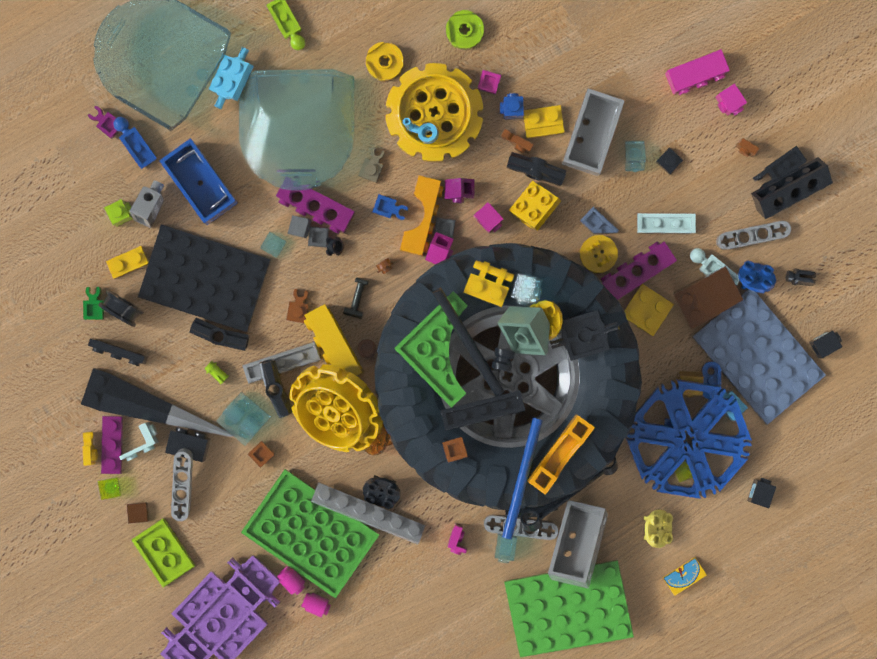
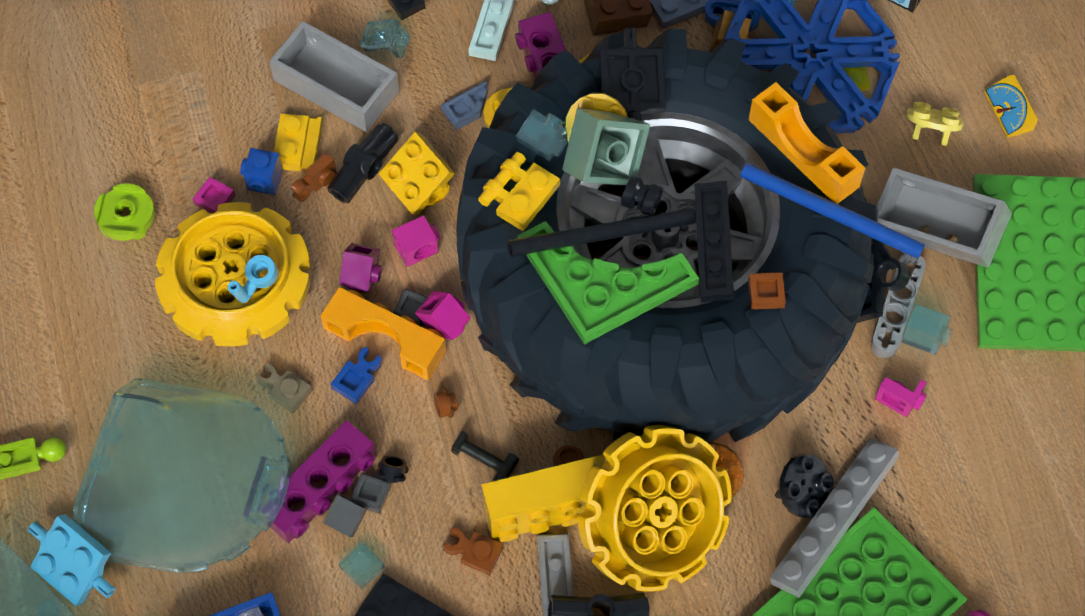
camera: 80 degrees left, 25 degrees down
(383, 72) = (130, 348): yellow plate -> none

